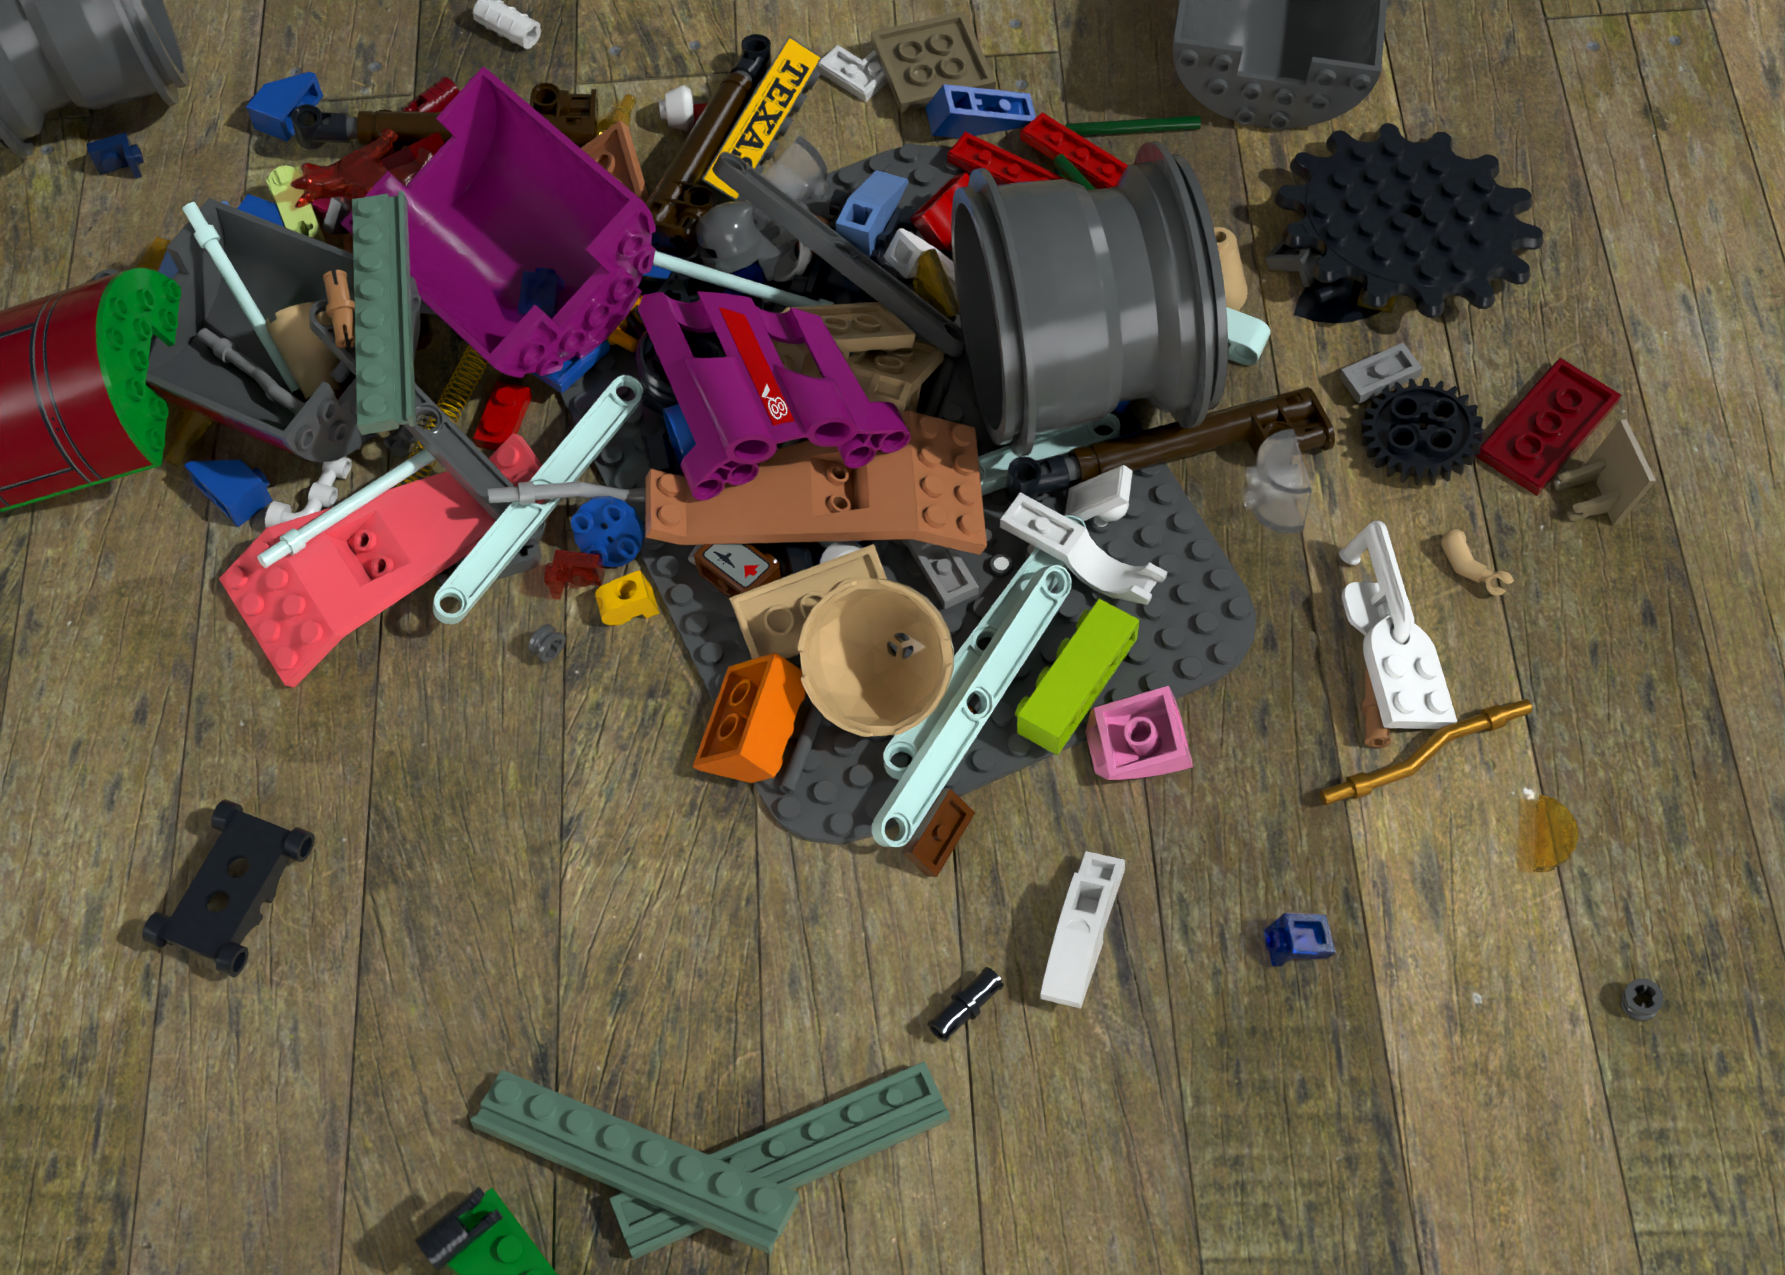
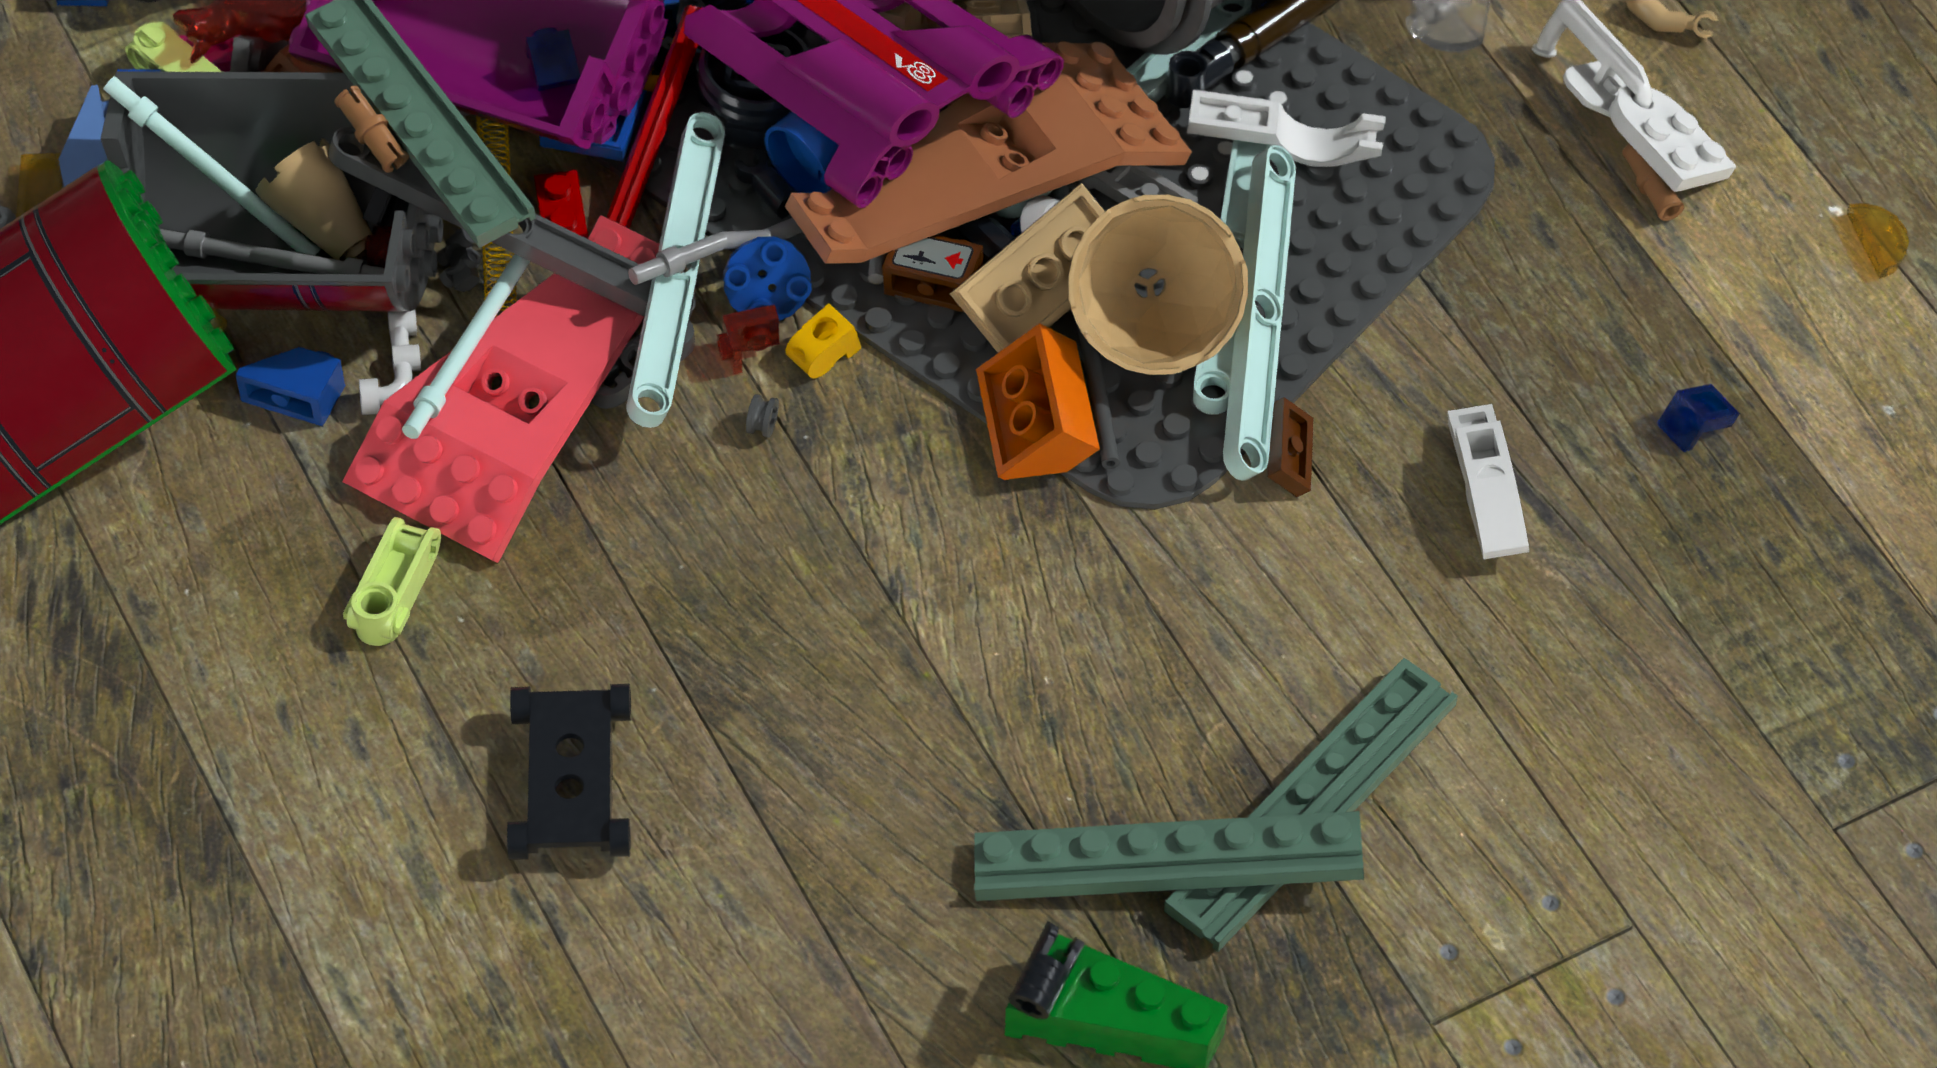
camera: 30 degrees left, 5 degrees down
(204, 673) = (392, 582): none -> yellowish green piece
(588, 381) = (653, 126): none -> red axle
(965, 1004) = (1410, 594): black pin -> none
(1077, 676) = (1351, 247): lime brick -> none
(1101, 496) = (1276, 67): white tile -> none
(1138, 737) = (1439, 285): bright pink slope -> none
(1362, 784) = (1677, 254): pearl gold bar -> none

